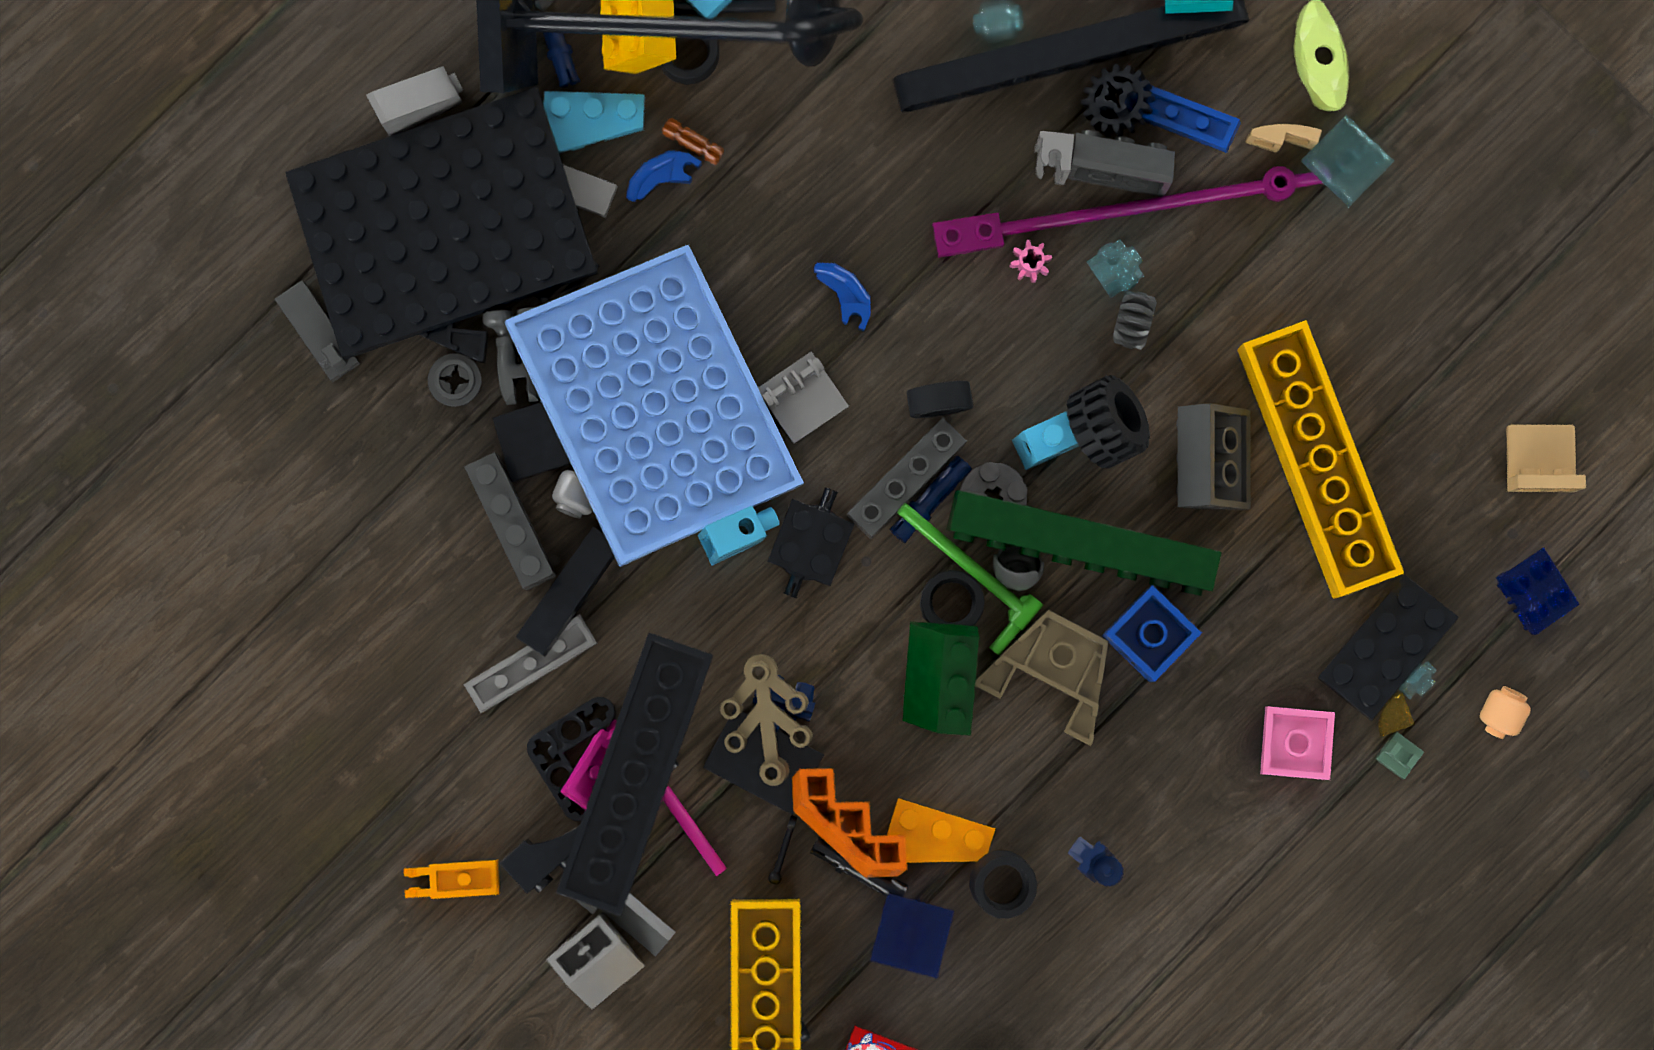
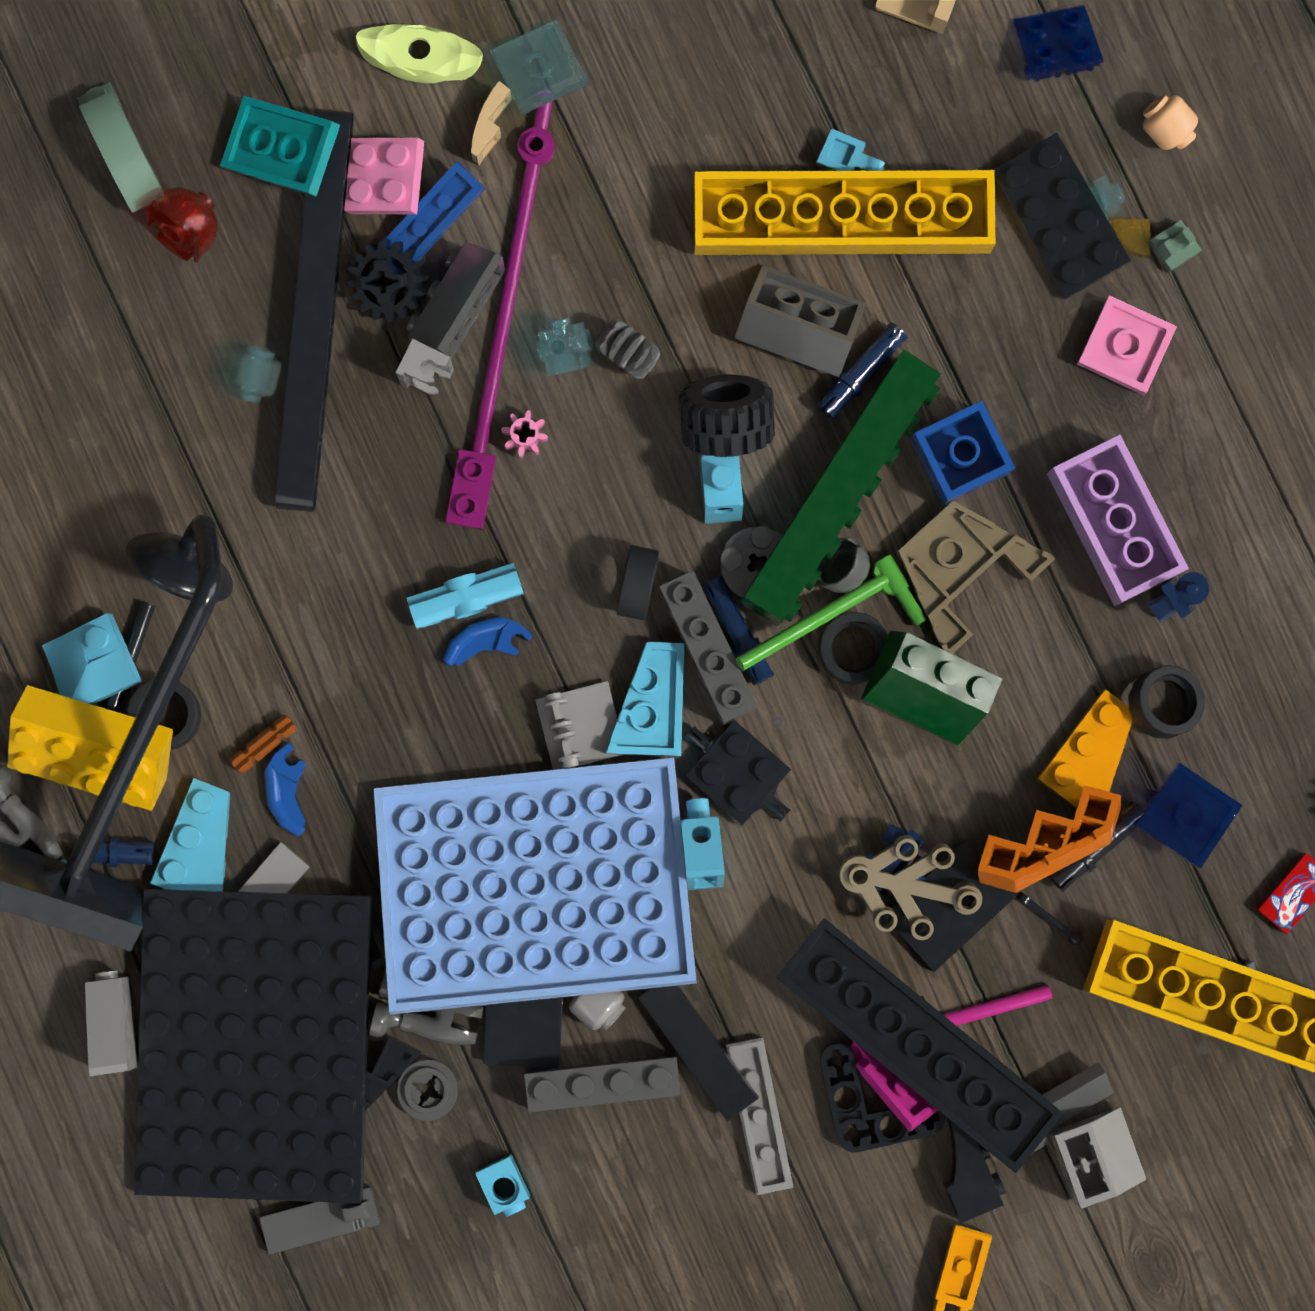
camera: 75 degrees left, 0 degrees up
(412, 467) = (503, 1168): none -> medium azure brick
(842, 450) = (653, 704): none -> medium azure wing
(876, 261) = (465, 596): none -> medium azure piece
(1143, 786) = (1117, 520): none -> lavender brick
(1191, 525) = (852, 381): none -> dark blue pin
(1205, 65) = (384, 176): none -> bright pink plate
(1371, 444) = (846, 154): none -> medium azure plate

